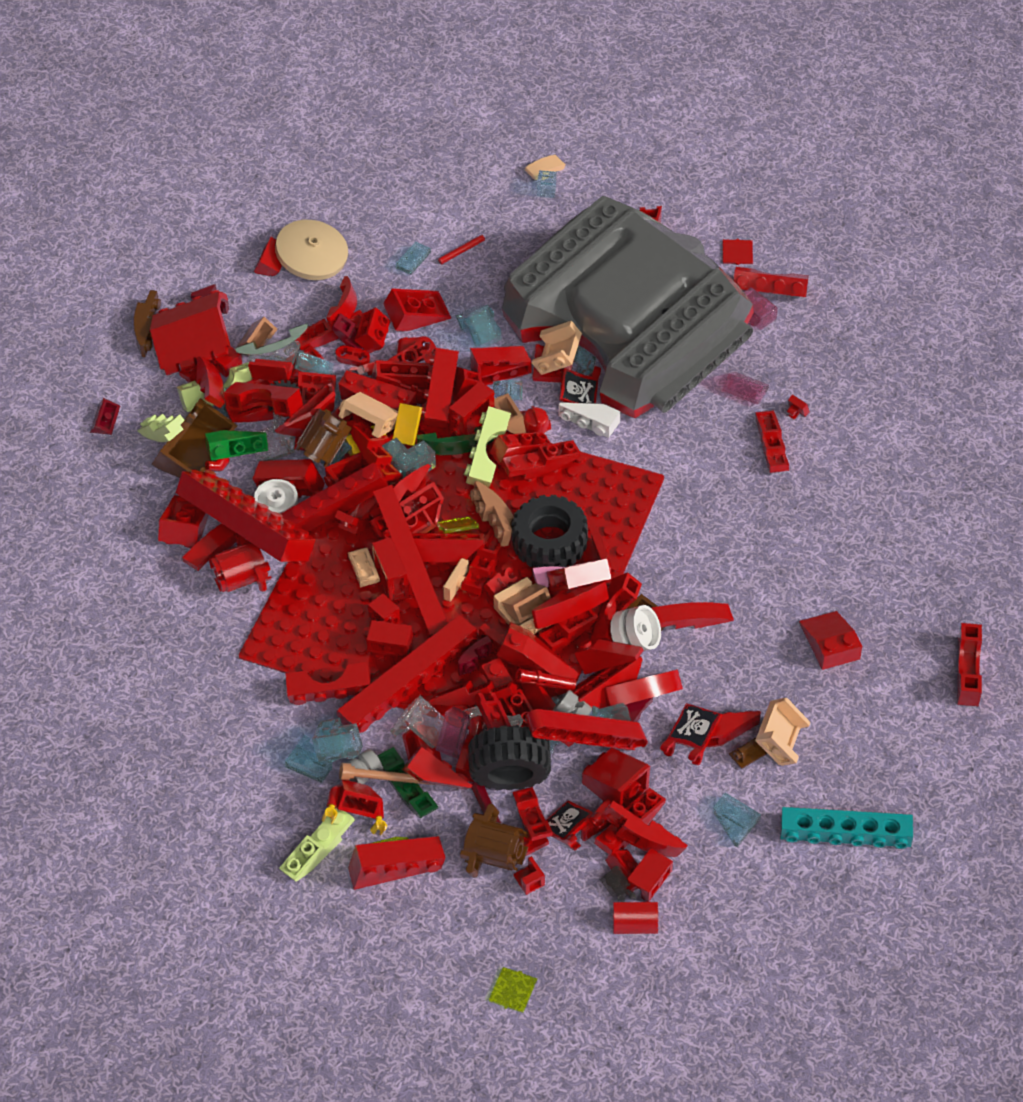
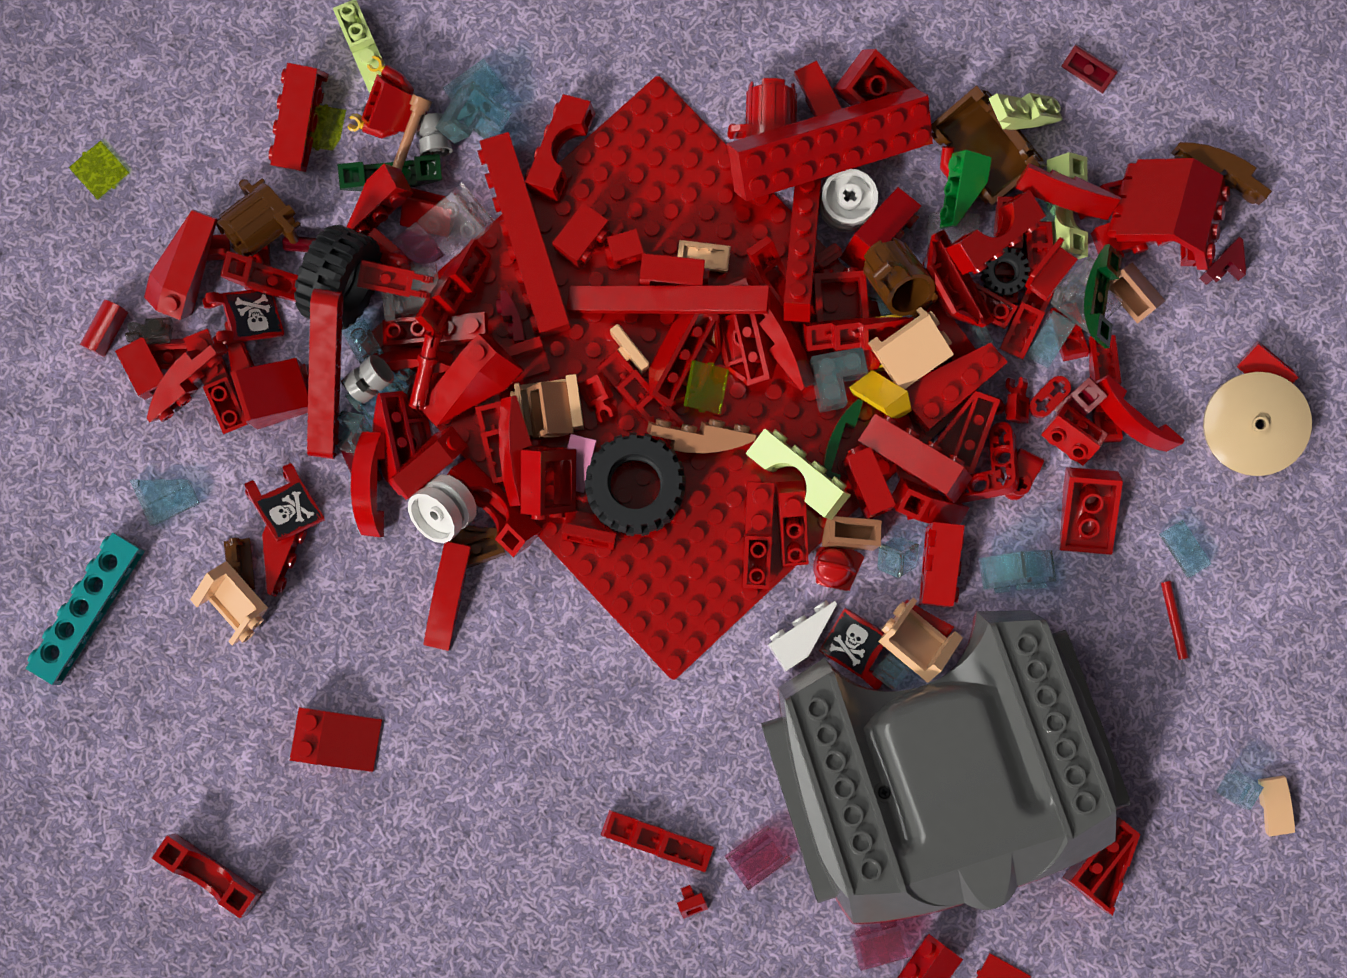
camera: 115 degrees right, 30 degrees up
(567, 877) = (179, 271): none -> red wedge

